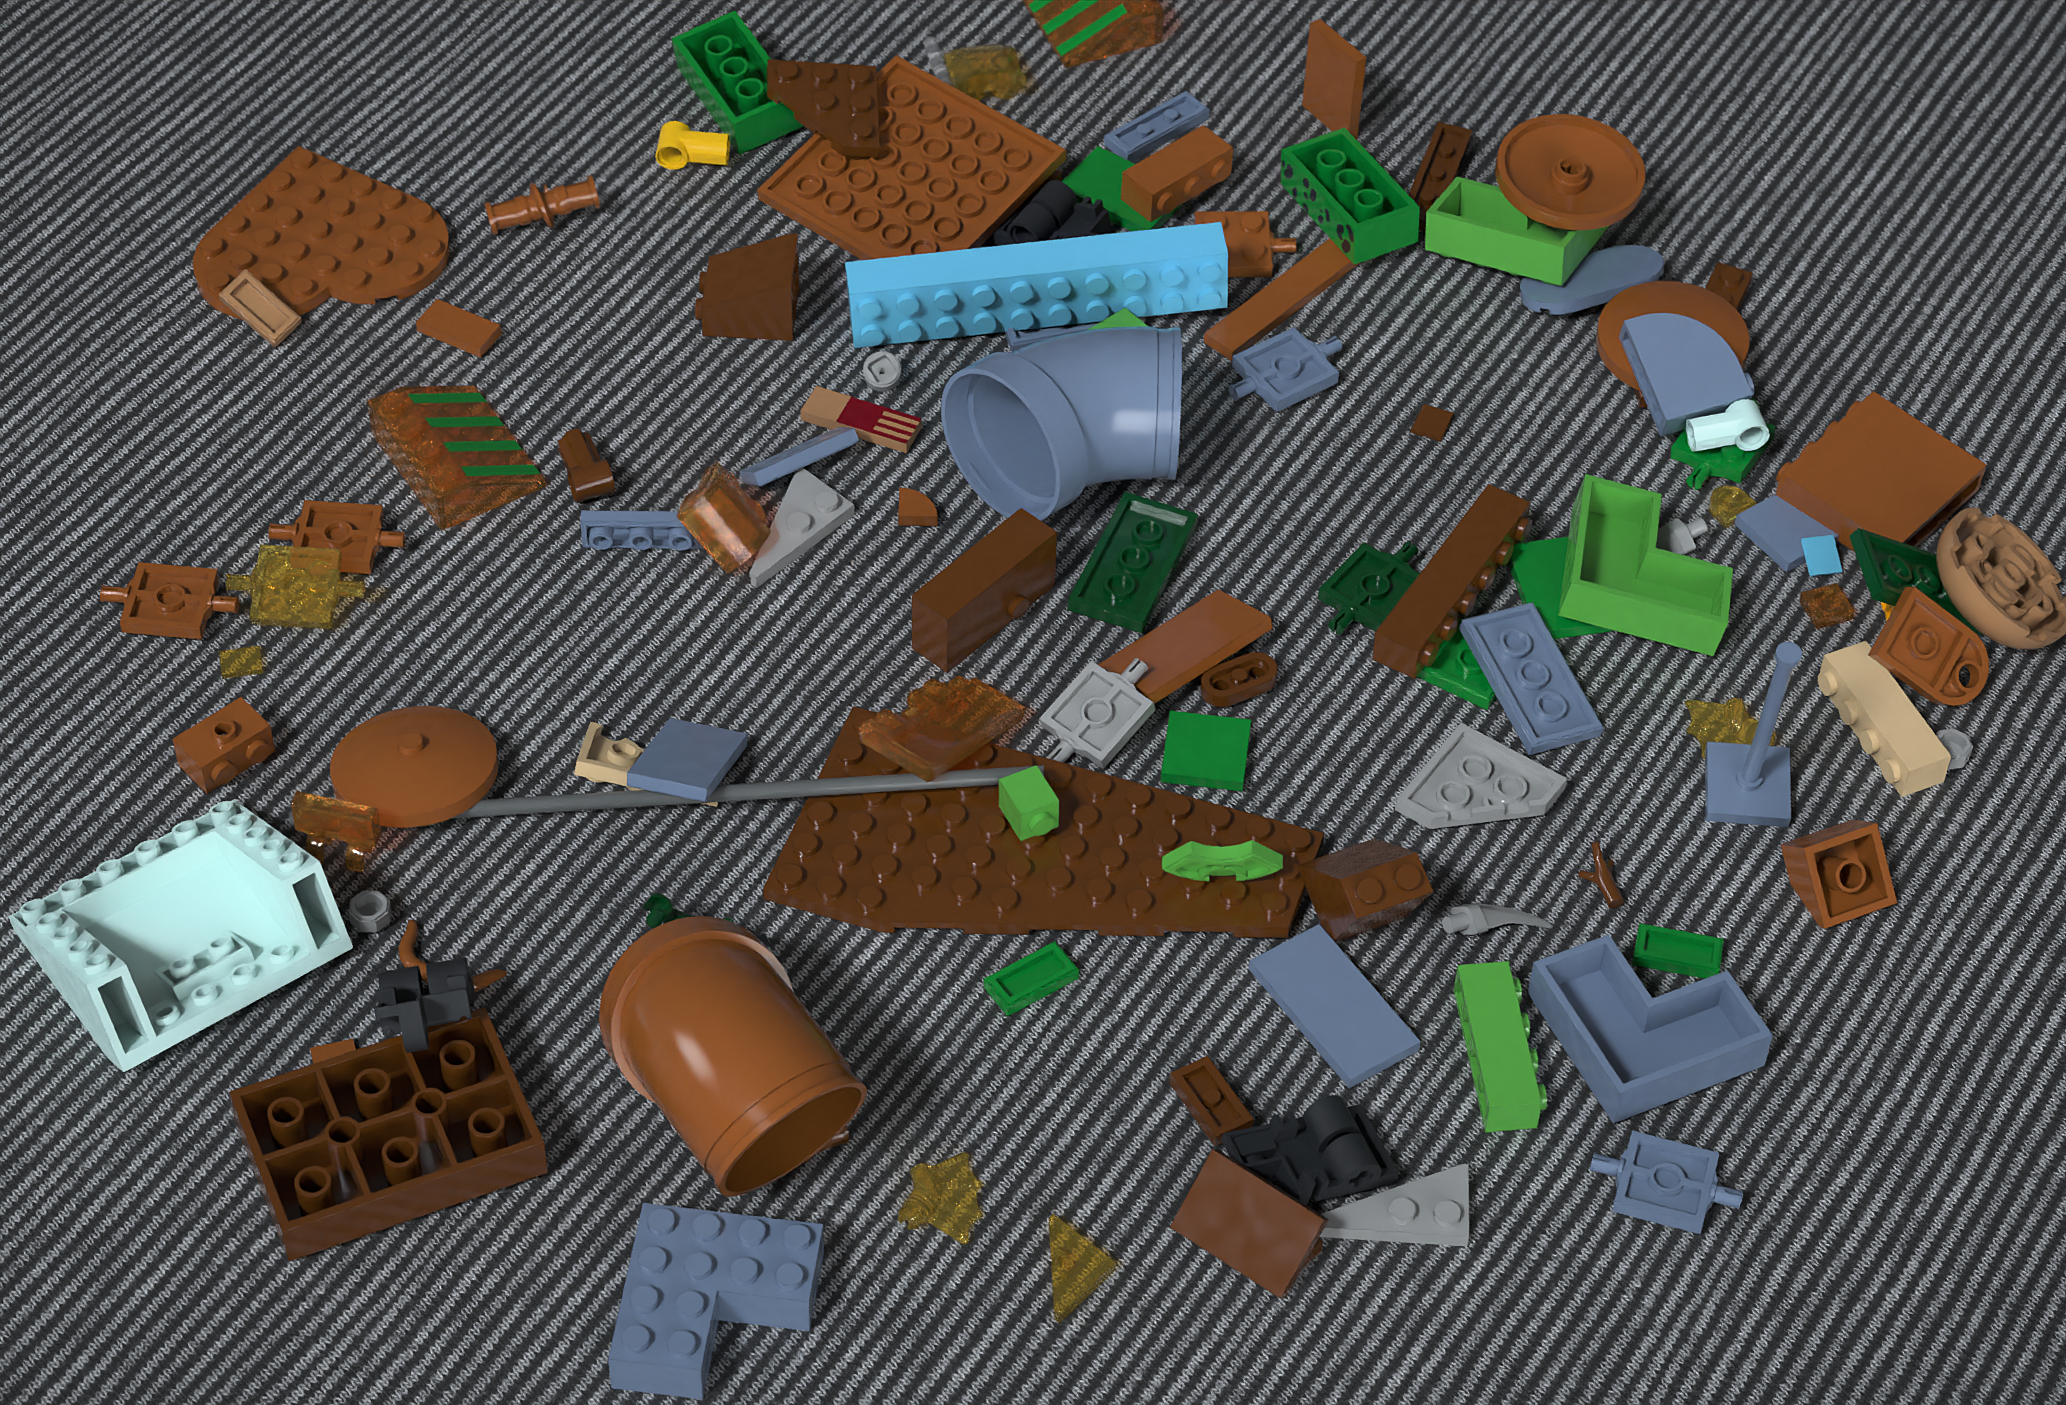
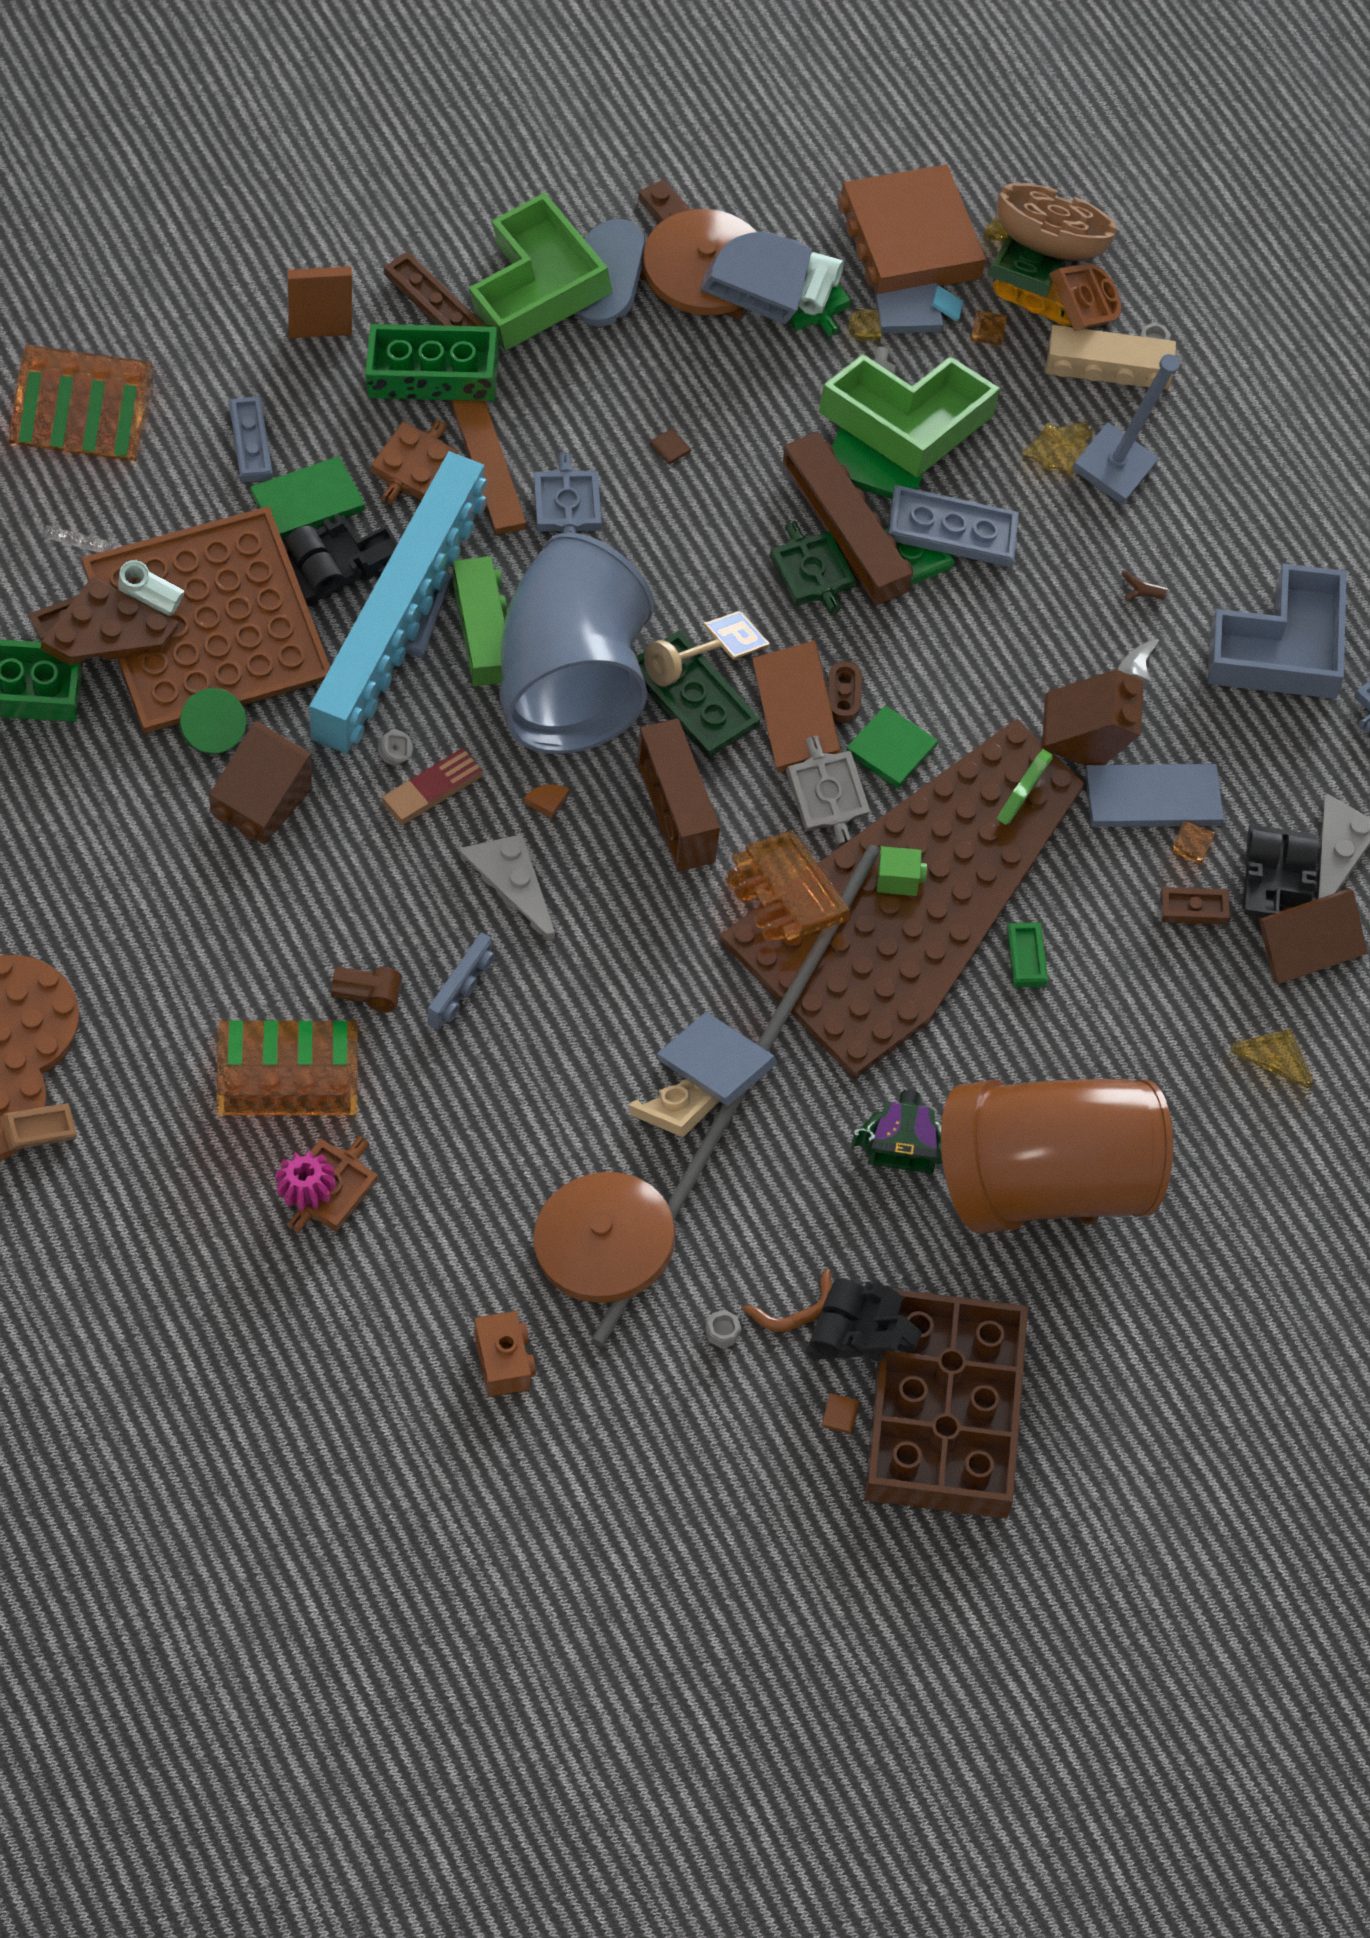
camera: 65 degrees left, 10 degrees up
(169, 600) = (321, 1328): dark orange plate -> none
(183, 931) = (669, 1456): light aqua slope -> none
(241, 662) = (408, 1309): clear yellow piece -> none
(295, 586) = (370, 1234): clear yellow plate -> none
(313, 503) = (305, 1180): none -> dark pink gear
(336, 819) = (637, 1314): clear orange plate -> none
(458, 328) = (146, 1001): dark orange tile -> none
(542, 205) = (55, 878): dark orange piece -> none
(682, 145) = (52, 753): yellow piece -> none
(705, 1269) = (1171, 1278): sand blue piece -> none
(724, 518) = (501, 918): clear orange brick -> none
(799, 456) = (450, 843): sand blue tile -> none
(812, 222) = (212, 721): none -> green tile
(894, 107) = (151, 590): none -> light aqua piece
(943, 1197) = (1184, 1099): clear yellow arm -> none
(985, 69) = (109, 511): clear yellow slope -> none
(1176, 173) = (332, 452): dark orange brick -> none
(1229, 562) = (730, 632): none -> tan piece
(1300, 1067) = (1192, 842): none -> clear orange tile
(1478, 782) = (1021, 609): light grey plate -> none
(1498, 1046) = (1246, 723): bright green brick -> none
(1570, 172) = (541, 218): dark orange dish -> none
(1677, 951) = (1223, 583): green tile -> none
(1840, 872) = (1218, 458): dark orange slope -> none

